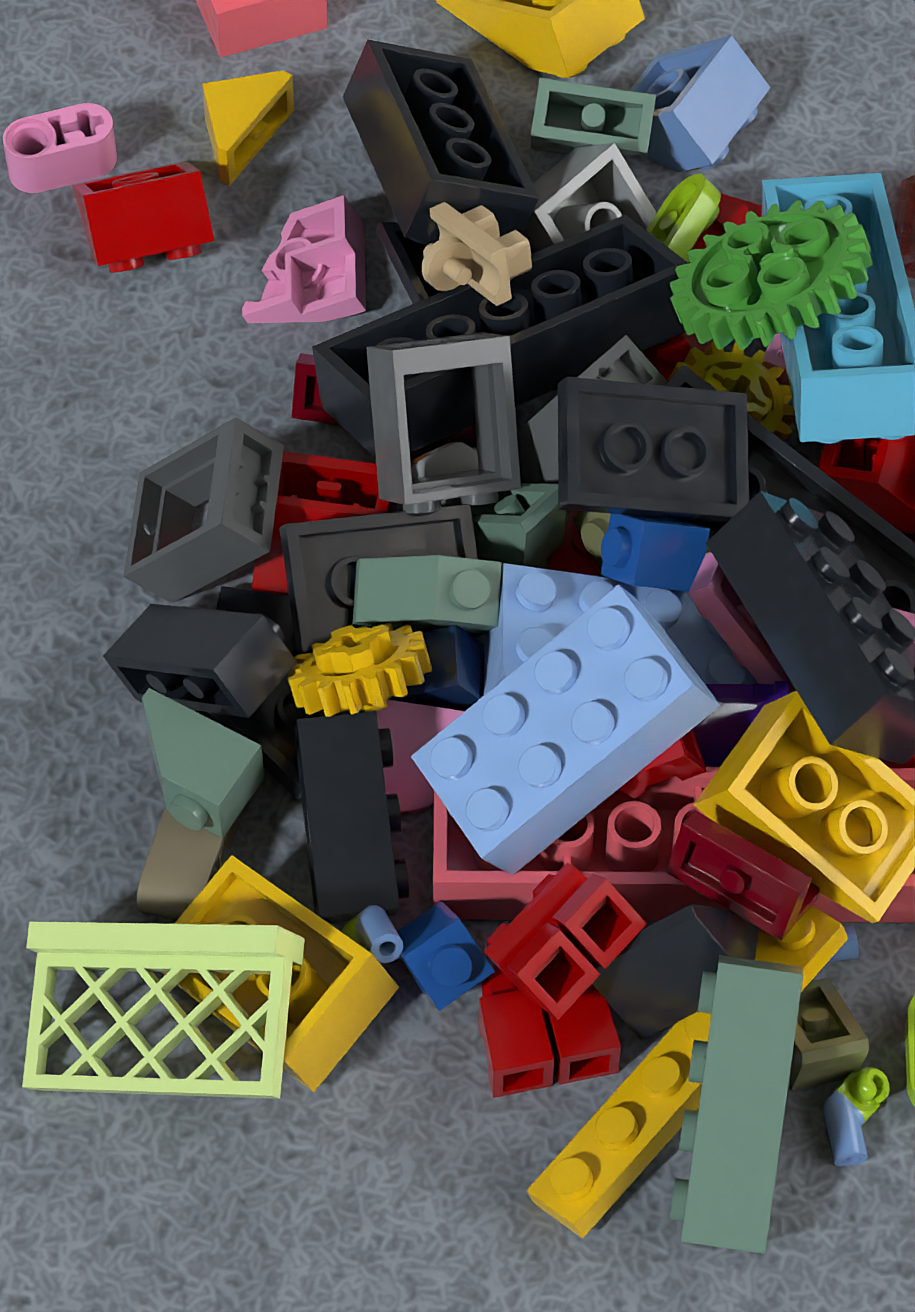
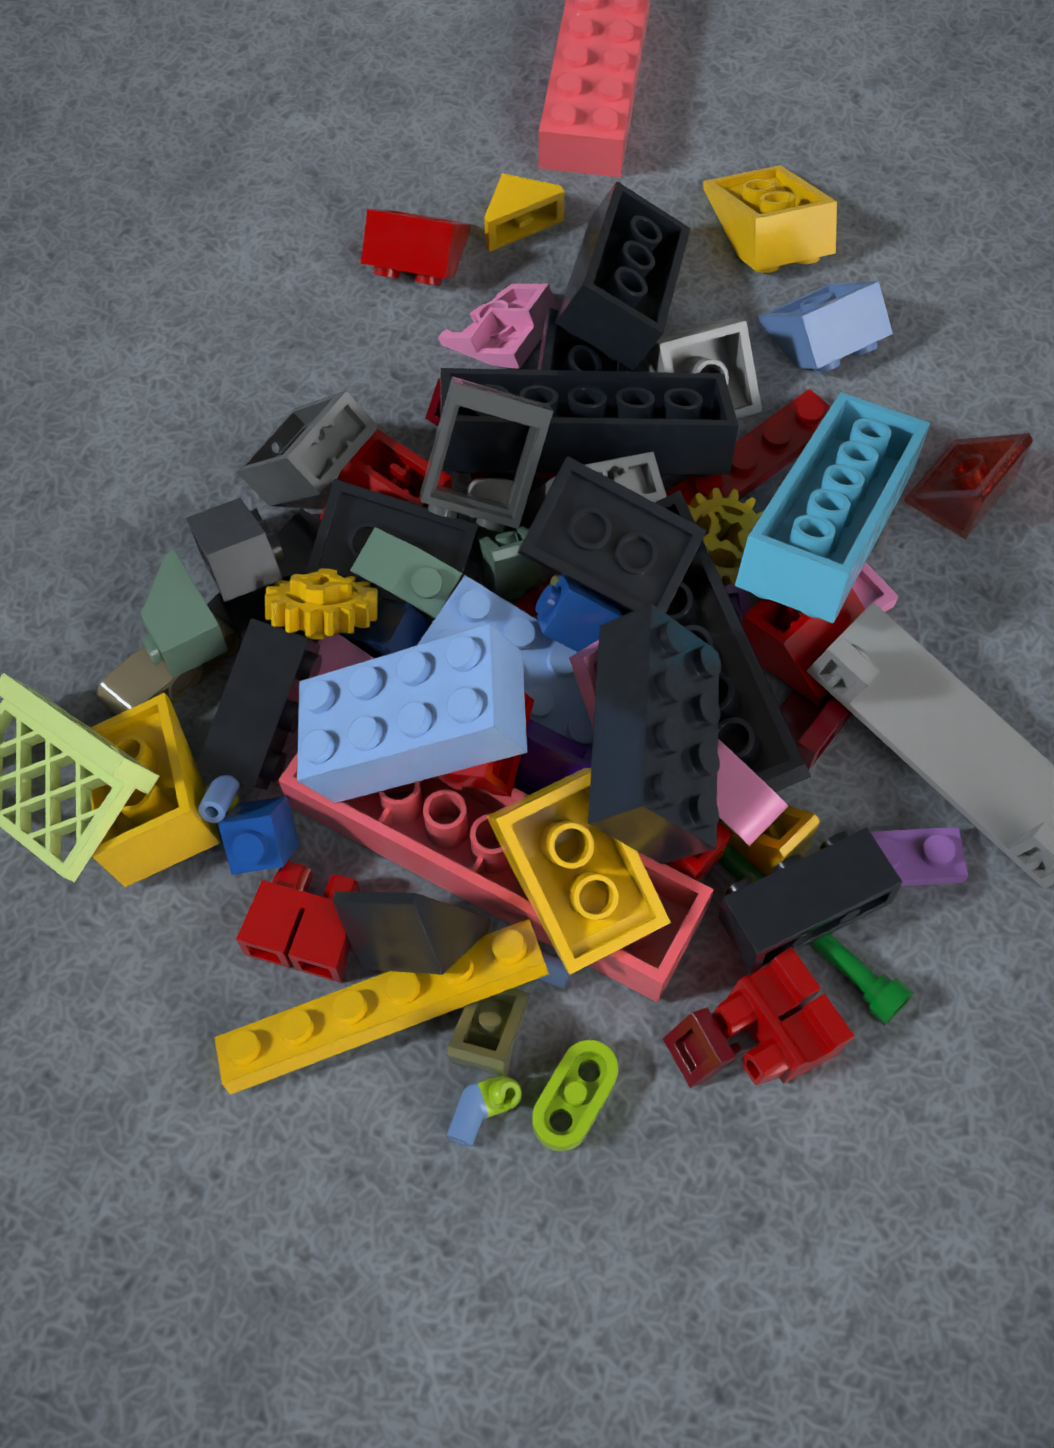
camera: 30 degrees right, 5 degrees up
(60, 147) = (391, 180): bright pink beam -> none
(474, 253) = (591, 350): tan hips -> none
(556, 934) = (323, 867): red hips -> none
(589, 115) = (741, 295): sand green slope -> none
(685, 214) = (776, 394): lime plate -> none
(740, 876) = (486, 888): dark red panel -> none
(740, 1103) = (379, 1059): sand green brick -> none
(771, 274) = (782, 453): bright green gear -> none

